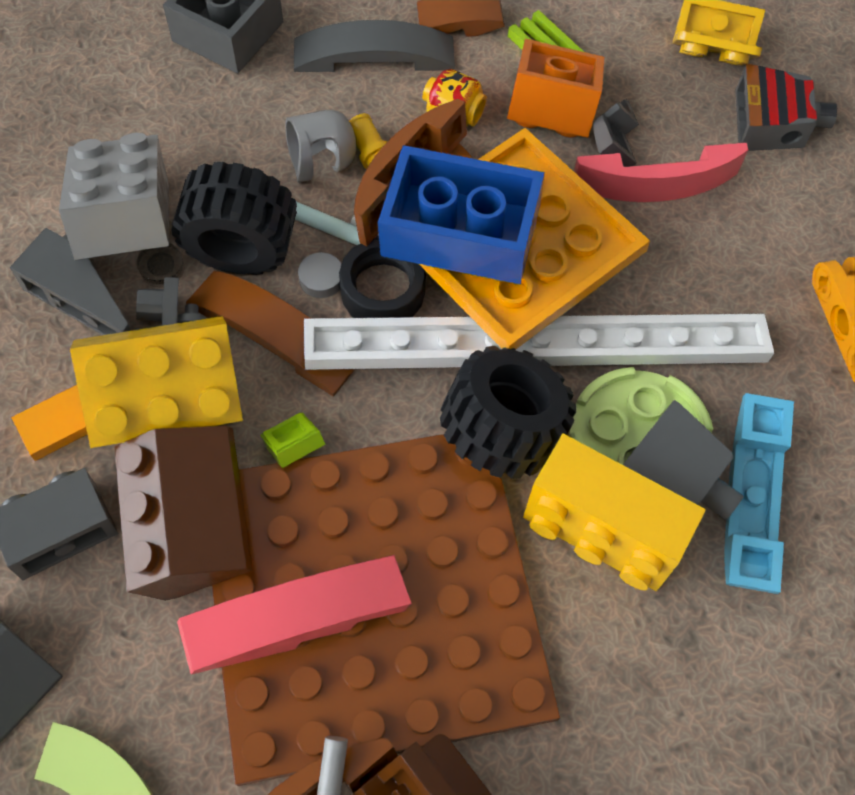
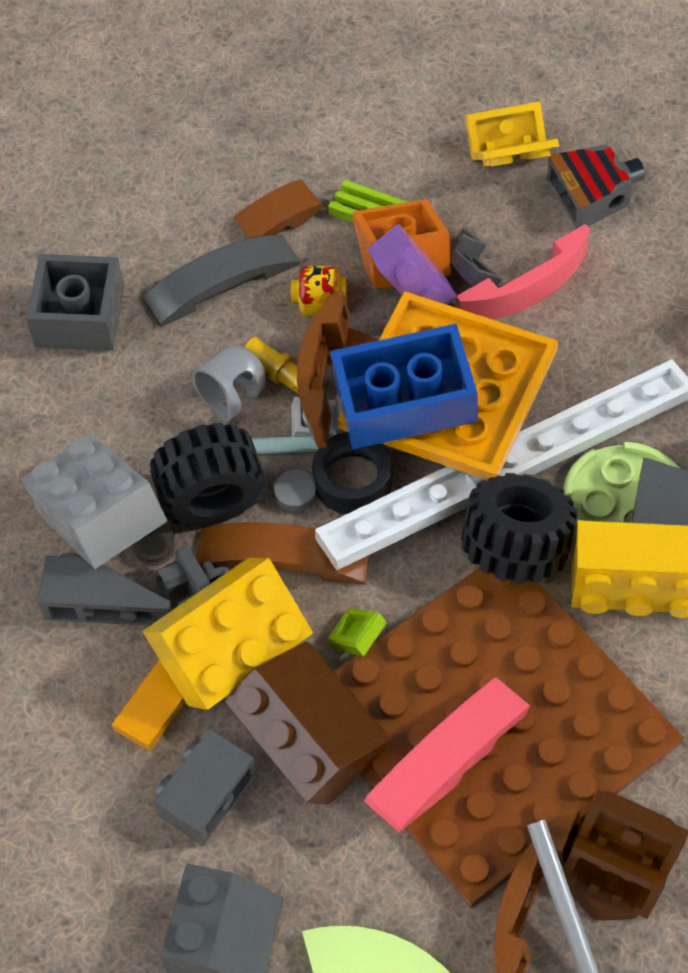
camera: 20 degrees left, 5 degrees down
(545, 109) = (409, 267): none -> medium lavender brick

